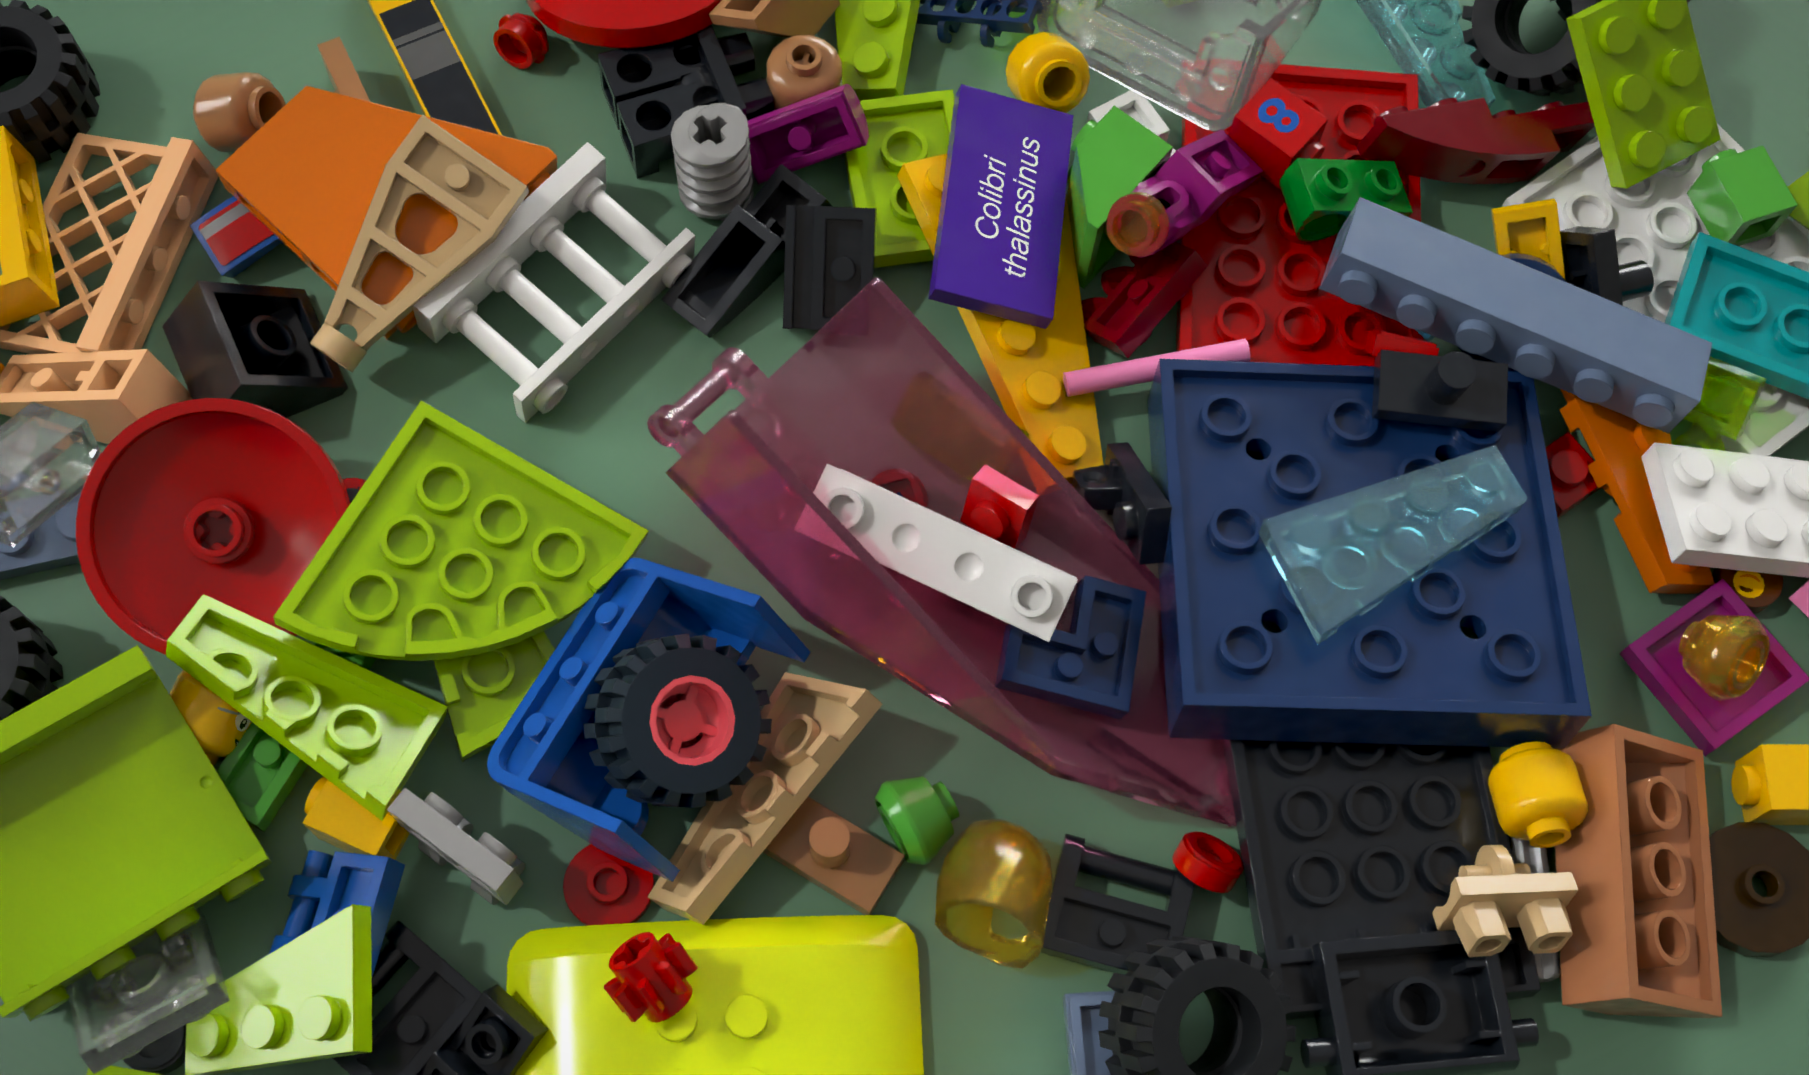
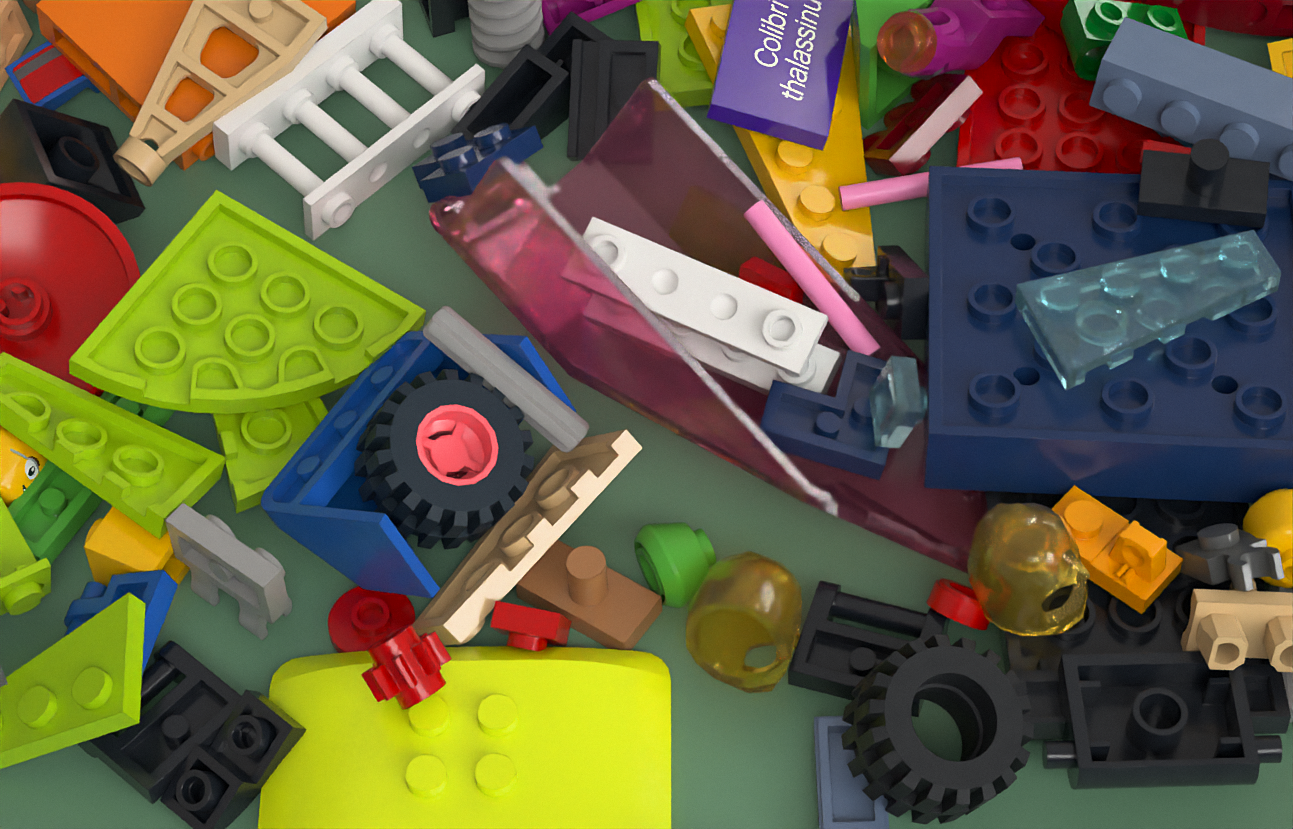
camera: 10 degrees right, 15 degrees down
(688, 351) = (460, 163): none -> dark blue plate
(739, 633) = (482, 357): none -> light grey axle
(773, 897) = (530, 627): none -> red plate
(1046, 499) = (810, 279): none -> bright pink bar
(1141, 648) = (897, 402): none -> clear light blue plate
(1284, 849) = (1020, 560): none -> clear yellow piece
(1356, 808) = (1118, 554): none -> light orange hinge
(1481, 820) = (1229, 553): none -> dark grey plate

